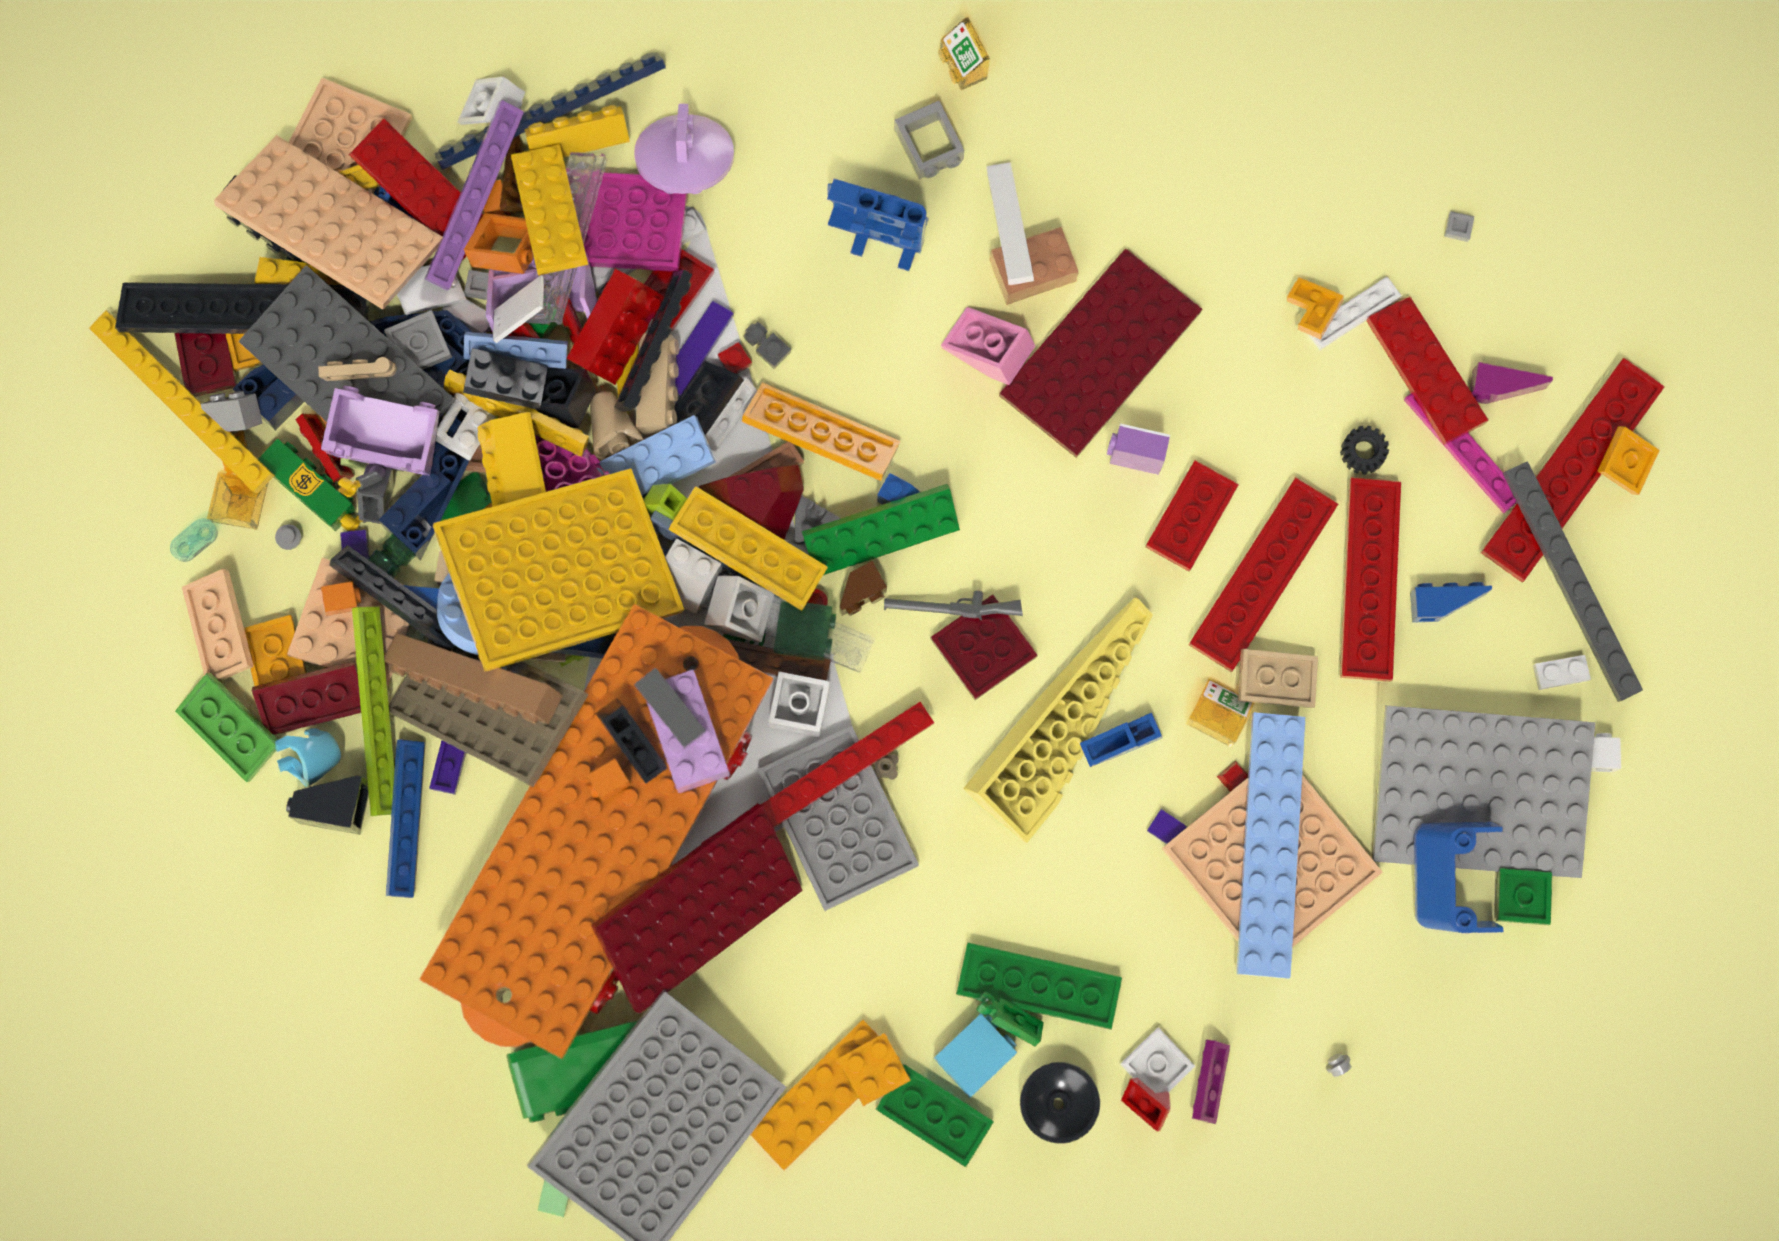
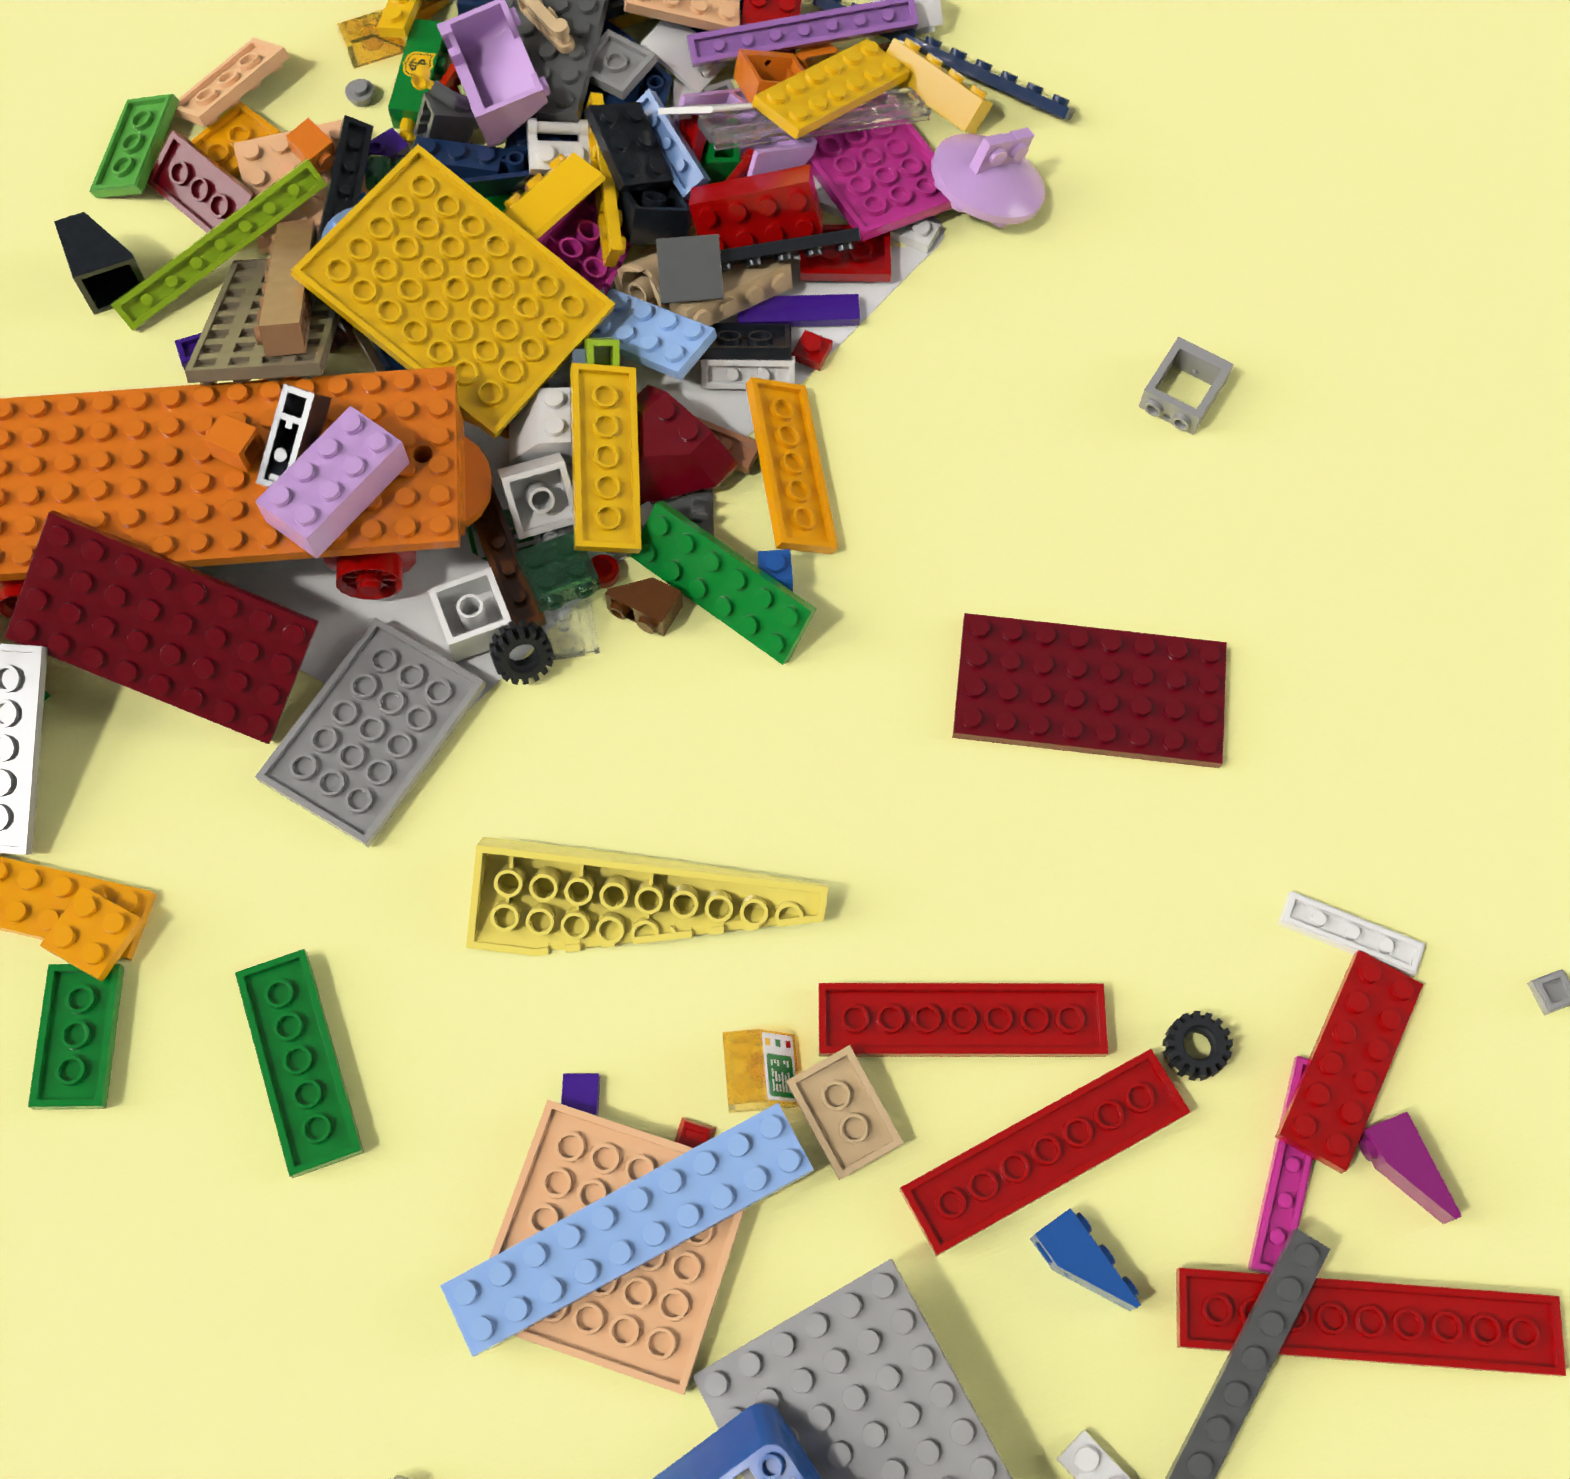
camera: 60 degrees right, 10 degrees down
(192, 537) = (306, 22): clear light blue plate -> none
(317, 755) = (140, 221): medium azure piece -> none
(405, 819) = (126, 338): blue tile -> none
(640, 401) = (690, 269): none -> dark grey tile
(670, 708) = (338, 438): dark grey tile -> none
(771, 349) = (849, 375): dark grey plate -> none
(847, 764) = (428, 697): red plate -> none
(849, 688) = (526, 667): none -> black tyre
(878, 218) = (1058, 377): blue piece -> none
(890, 772) = (464, 754): dark tan plate -> none
(964, 55) = (1301, 361): slope -> none
(972, 610) = (695, 725): dark grey piece -> none
(976, 1054) = (173, 1037): medium azure panel -> none
(983, 650) = (664, 766): dark red plate -> none
(989, 344) = (1010, 572): bright pink slope -> none
(1009, 224) = (1153, 504): white tile -> none
(1011, 1018) = (235, 1051): green plate -> none
(1050, 263) = (1131, 561): nougat brick -> none
(1079, 1100) = (137, 1160): black dish -> none
(1121, 740) = (653, 978): blue slope -> none
(1138, 449) = (1005, 786): medium lavender piece -> none
(1147, 1104) = (213, 1277): red slope -> none
(1158, 1063) = (278, 1262): white tile -> none
(1192, 516) = (973, 896): red plate -> none
(1210, 1081) = (288, 1339): magenta plate -> none
(1320, 305) = (1326, 886): light orange plate -> none
(1628, 460) = (1433, 1386): light orange plate -> none

